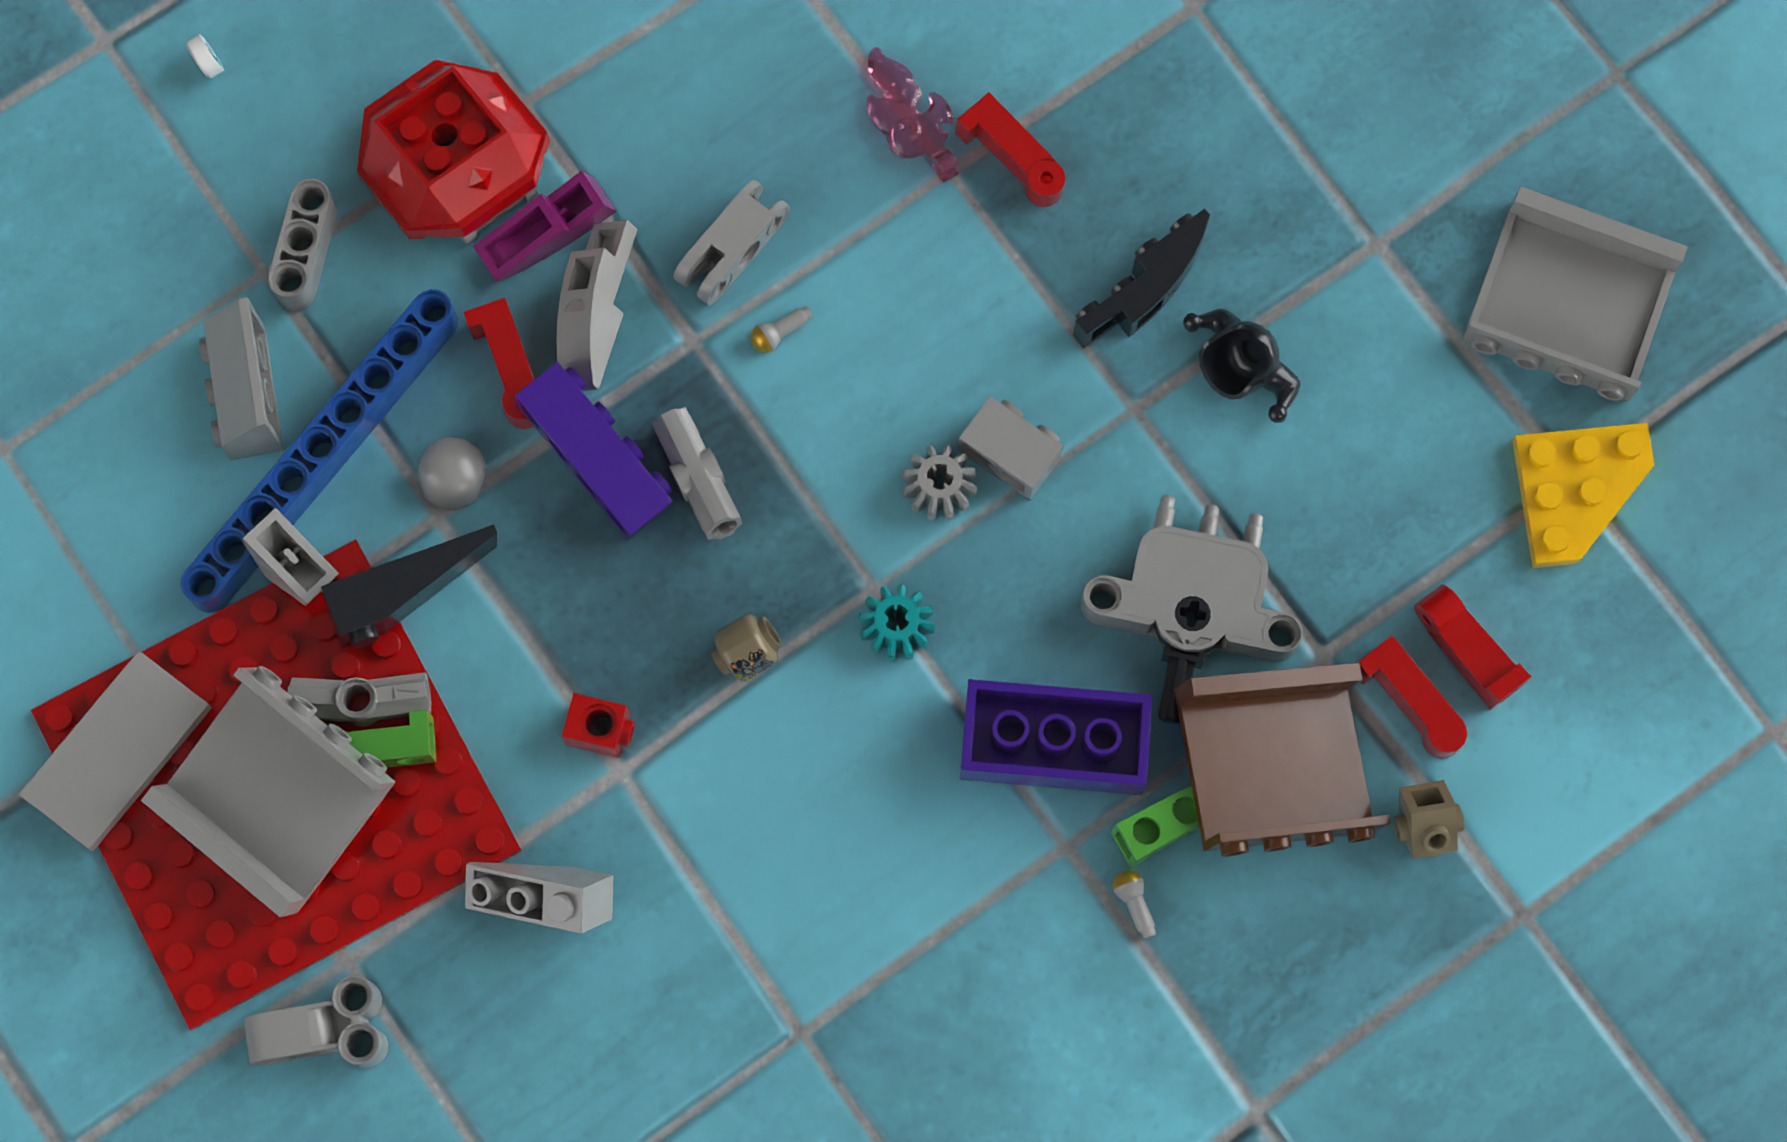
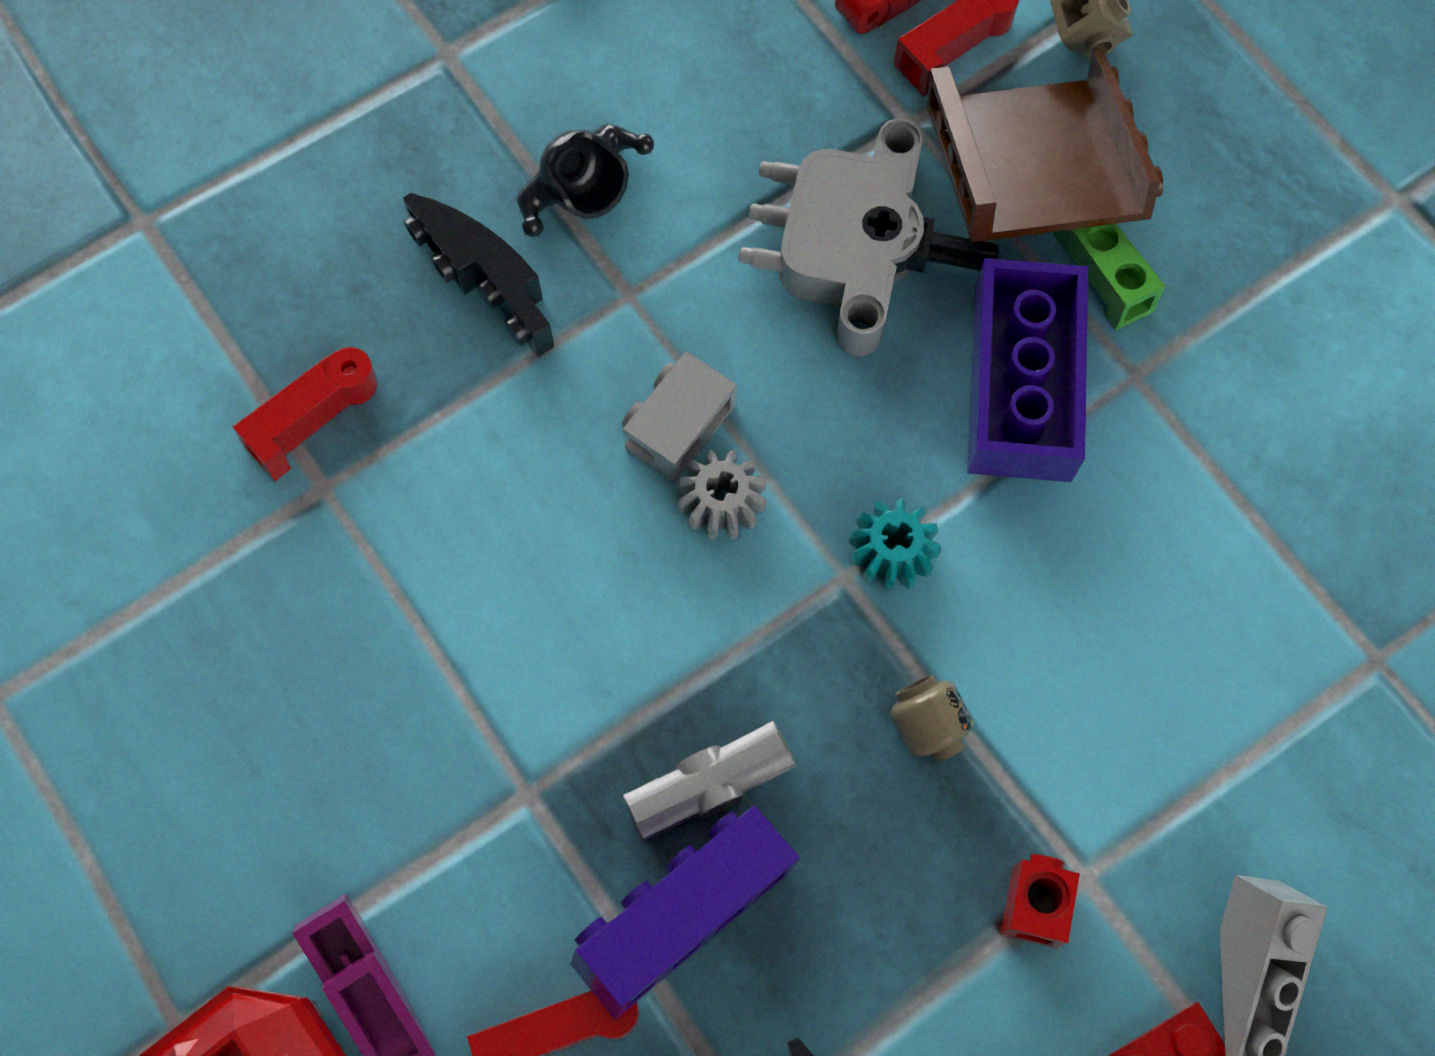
camera: 90 degrees left, 5 degrees down
(586, 308) = (476, 923): light grey slope -> none
(731, 243) = (403, 740): light grey piece -> none
(767, 336) = (527, 698): light grey piece -> none
(906, 129) = (268, 531): clear pink piece -> none
(1130, 889) = (1181, 308): light grey piece -> none

